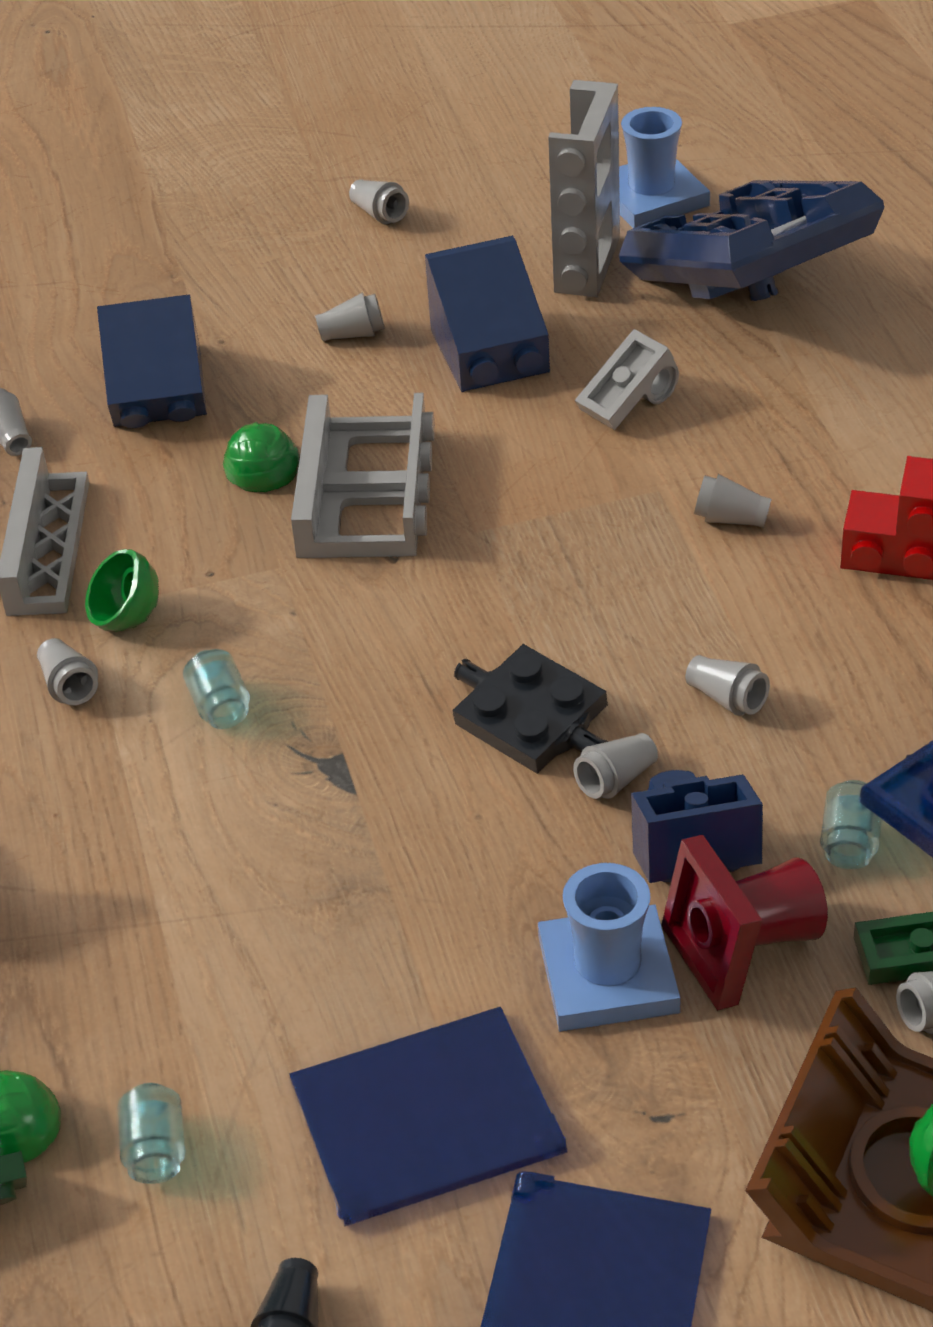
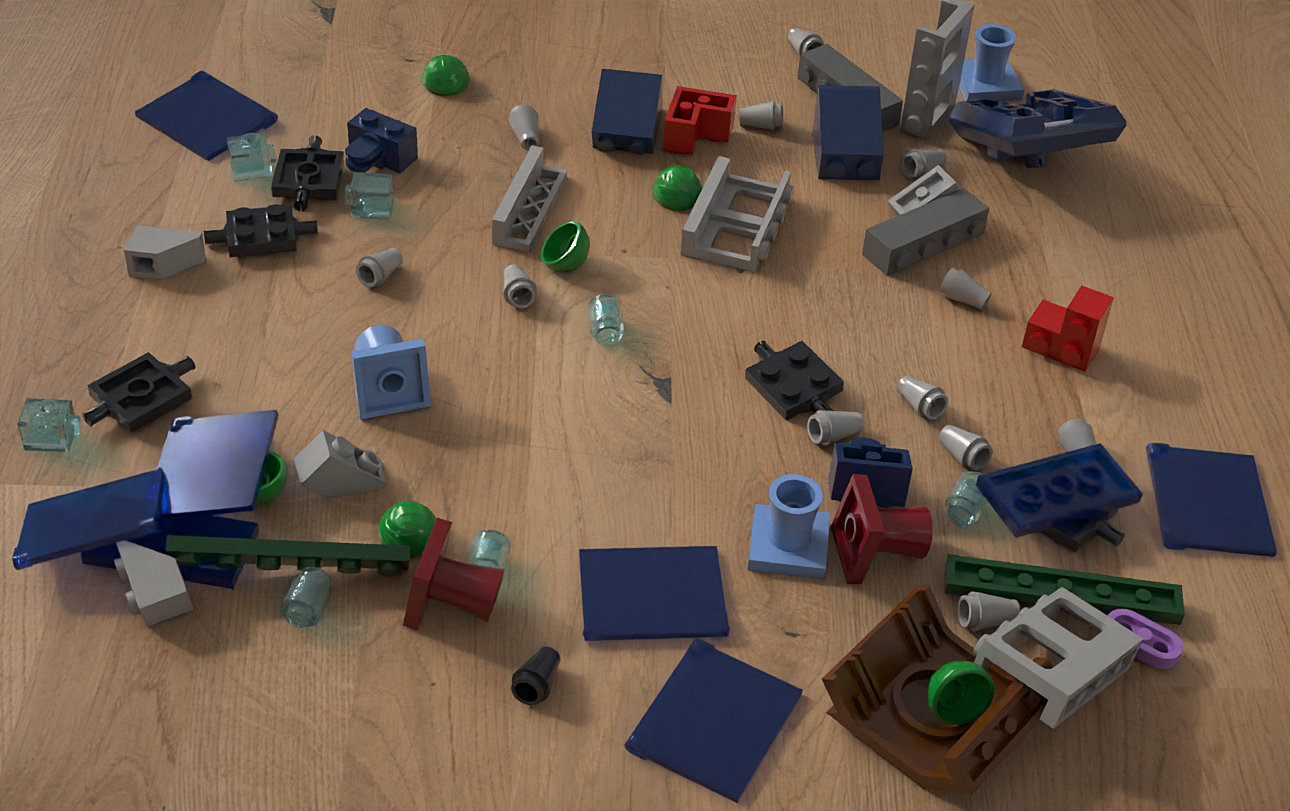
camera: 10 degrees right, 0 degrees up
(105, 1192) = (450, 581): none -> dark red plant
(258, 342) = (695, 116): none -> red brick
(426, 226) = (829, 67): none -> dark grey brick
(603, 331) = (920, 161): none -> light grey cone
(644, 432) = (925, 231): none -> dark grey brick
(820, 744) = (968, 448): none -> light grey cone

